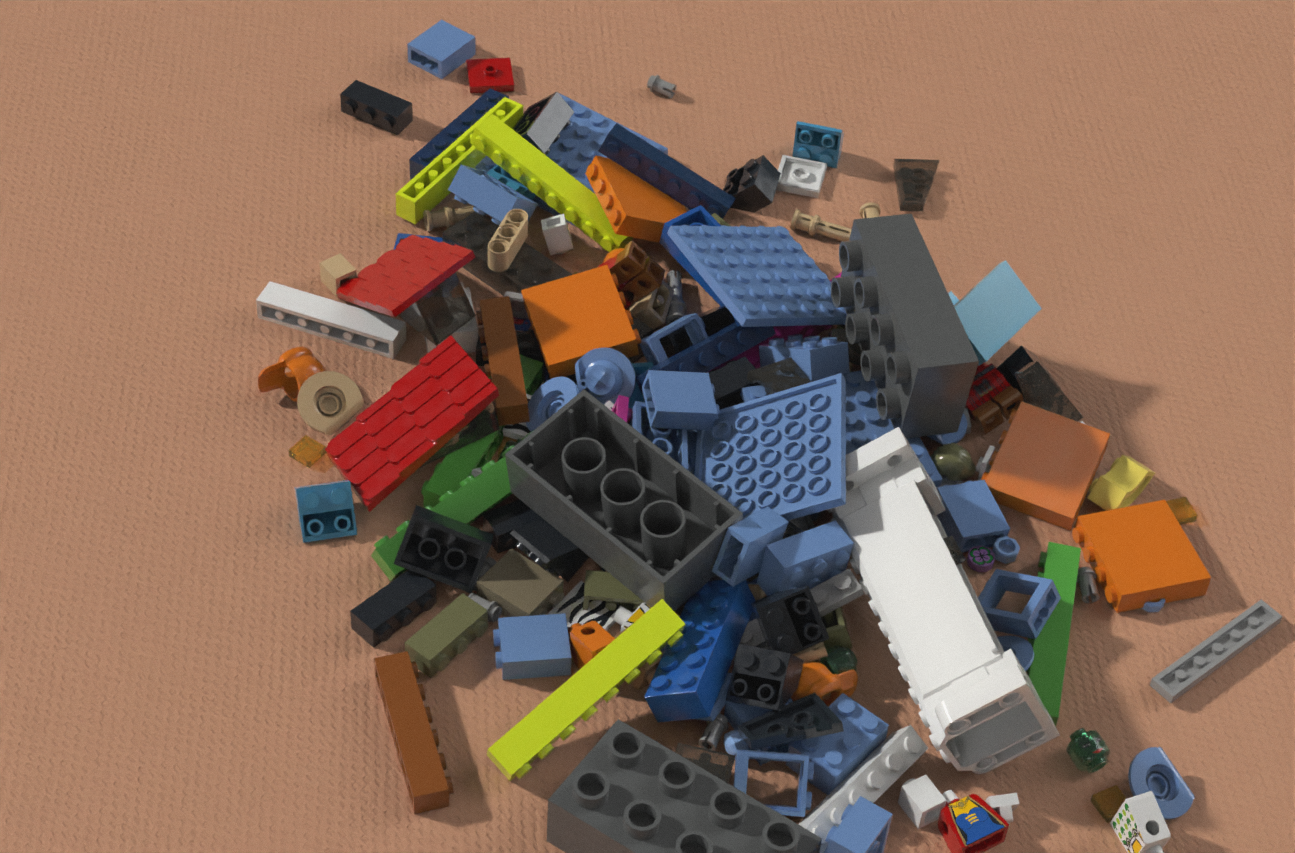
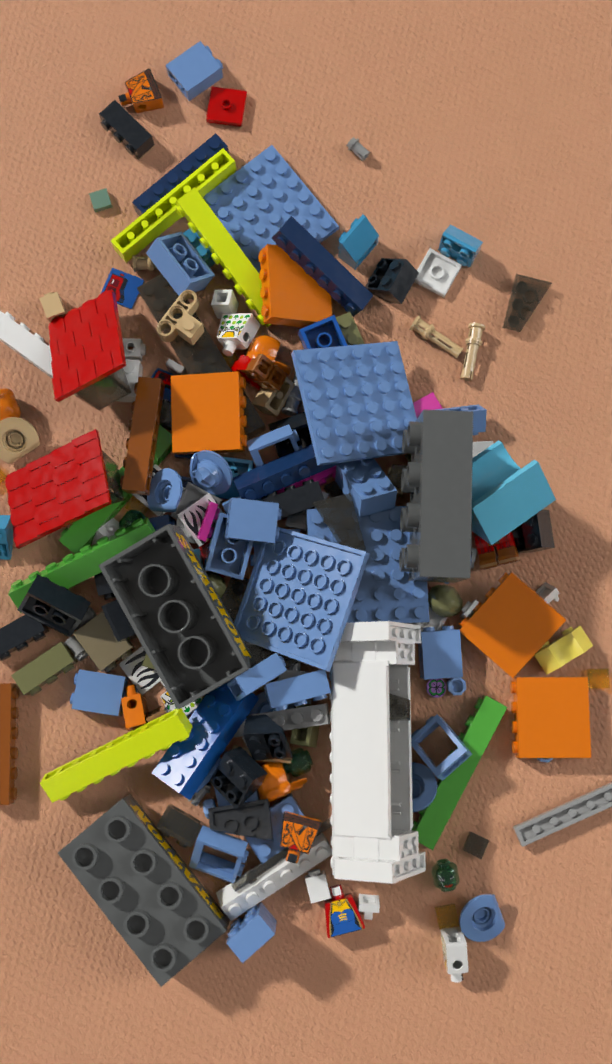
camera: 20 degrees right, 35 degrees up
(363, 174) = (100, 200): none -> sand green tile
(387, 73) = (142, 93): none -> torso
(528, 247) = (190, 329): none -> tan brick
(544, 122) = (239, 188): slope -> none
(584, 250) = (237, 331): none -> white torso
(698, 151) = (357, 242): none -> dark azure slope
(828, 789) = (251, 875): none -> clear smoke bar
(872, 716) = (298, 834): none -> torso
(1043, 392) = (536, 564): clear smoke wing -> none
(1086, 580) = (503, 730): light grey pin -> none
(1111, 715) = (475, 845): none -> clear smoke tile

